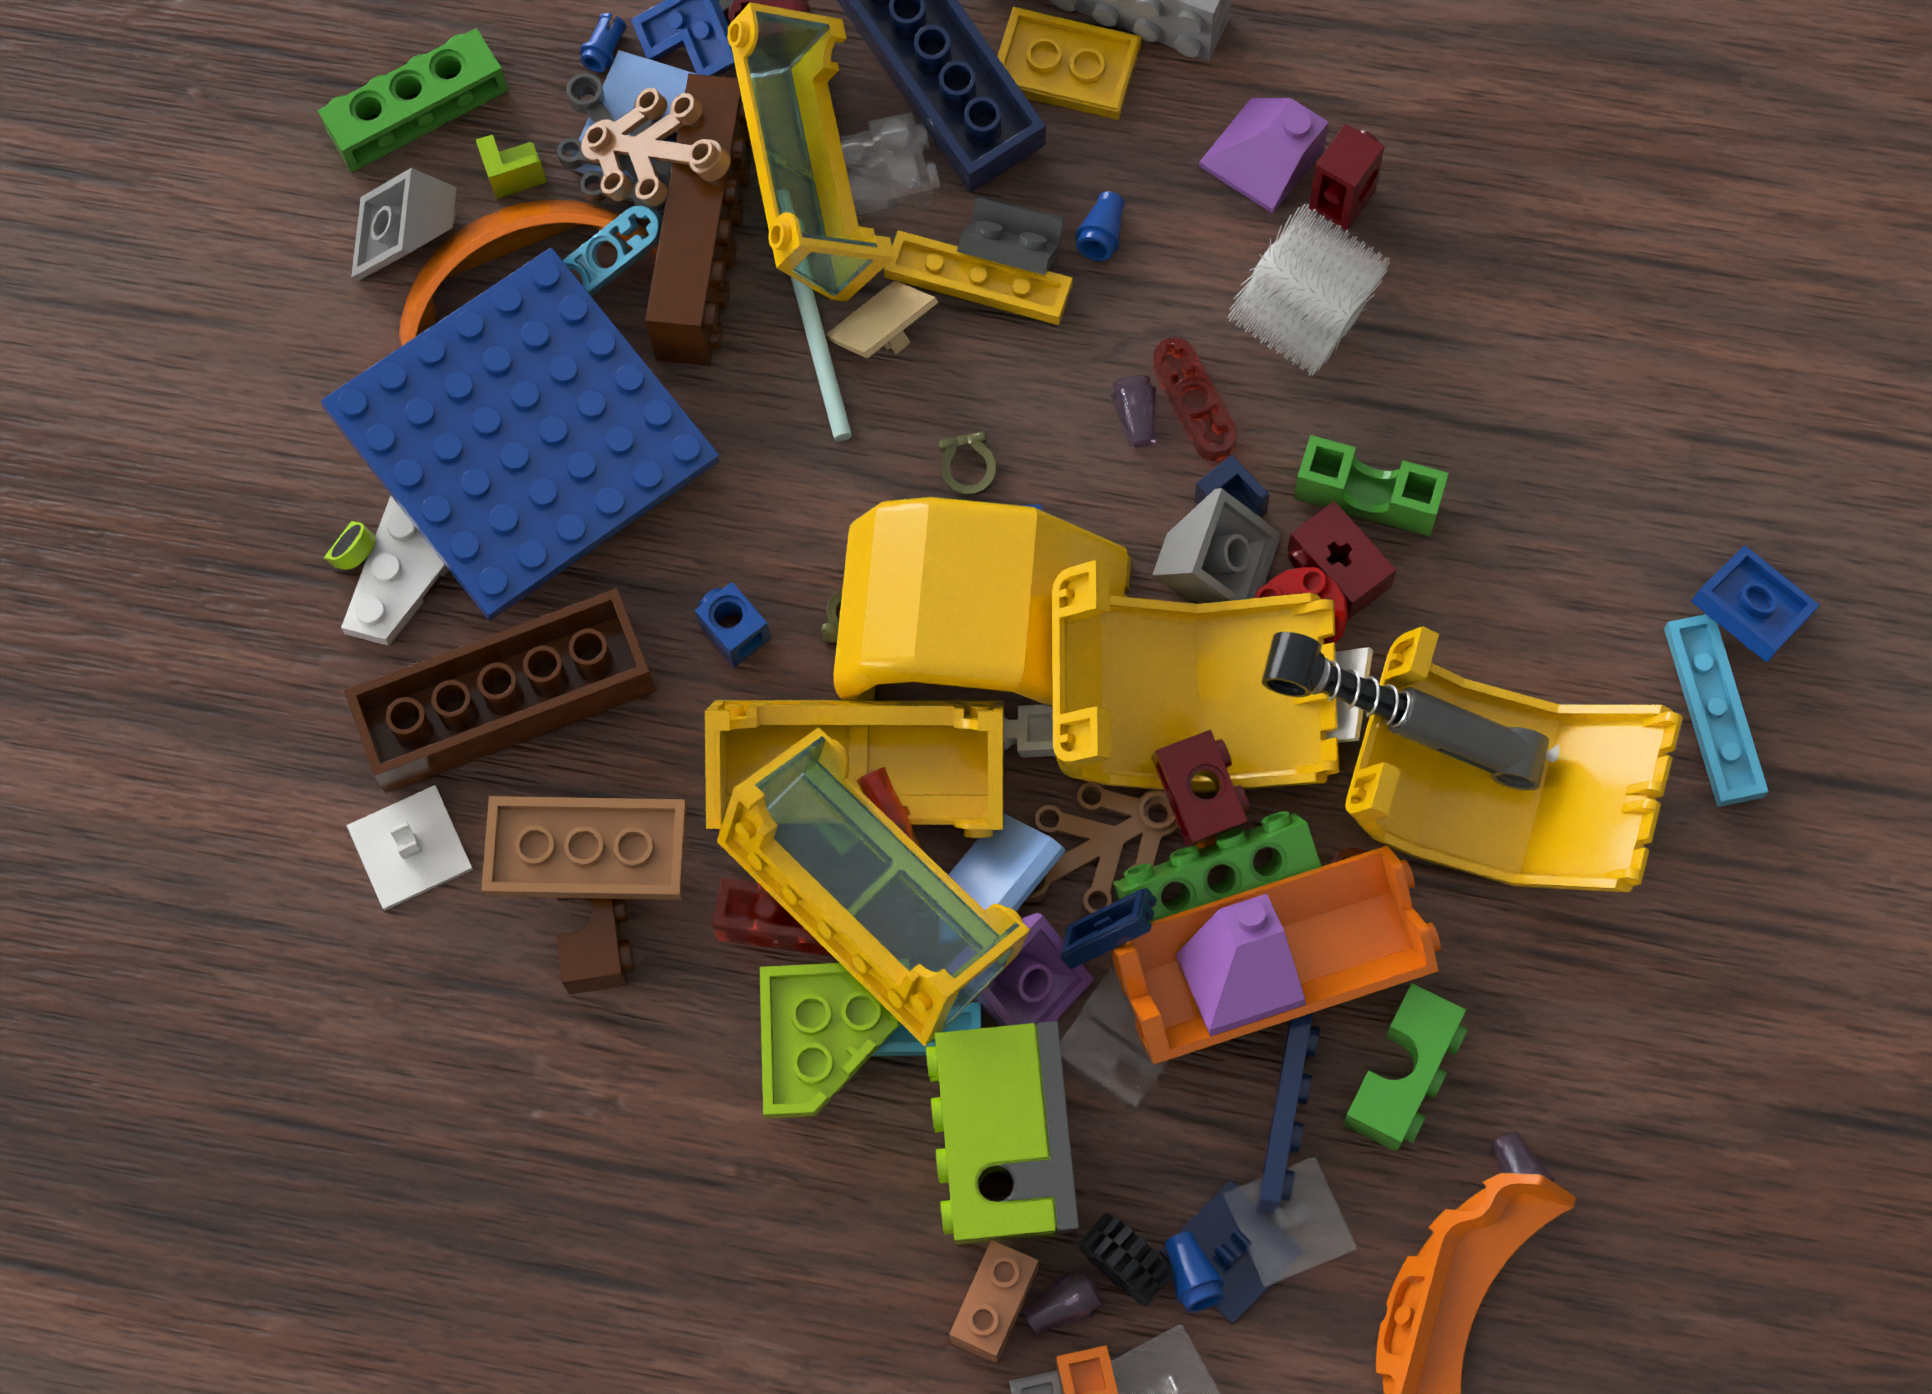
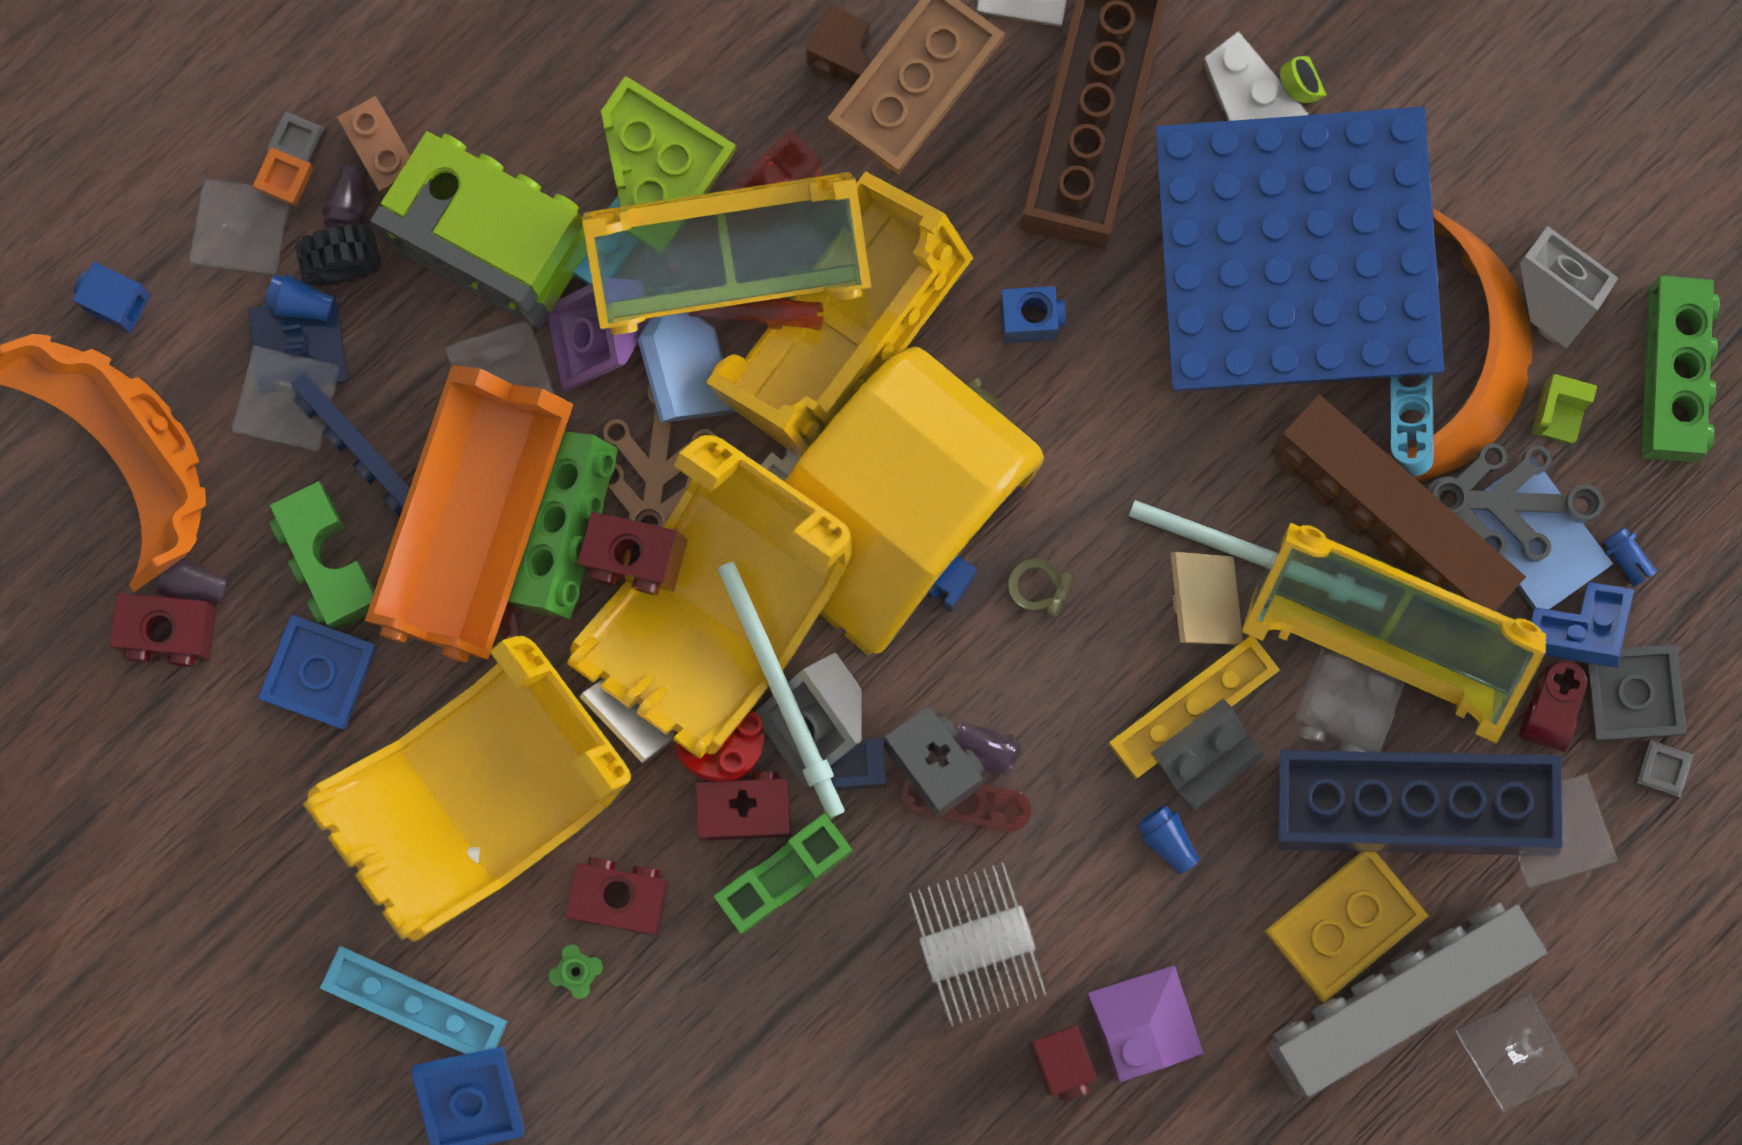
camera: 120 degrees right, 10 degrees up
(609, 140) = (1516, 481): medium nougat plant -> none
(1108, 928) = (568, 399): dark blue tile -> none
(1186, 455) = (937, 786): none -> dark grey brick
(1241, 967) = (472, 477): medium lavender slope -> none
(1264, 514) = (817, 772): none -> light aqua bar
(1497, 582) = (589, 902): none -> dark red brick
(1509, 753) = (492, 810): piece -> none
(1510, 999) = (318, 672): none -> blue plate
(1574, 614) = (578, 984): none -> bright green plate
(1583, 1132) = (140, 614): none -> dark red brick

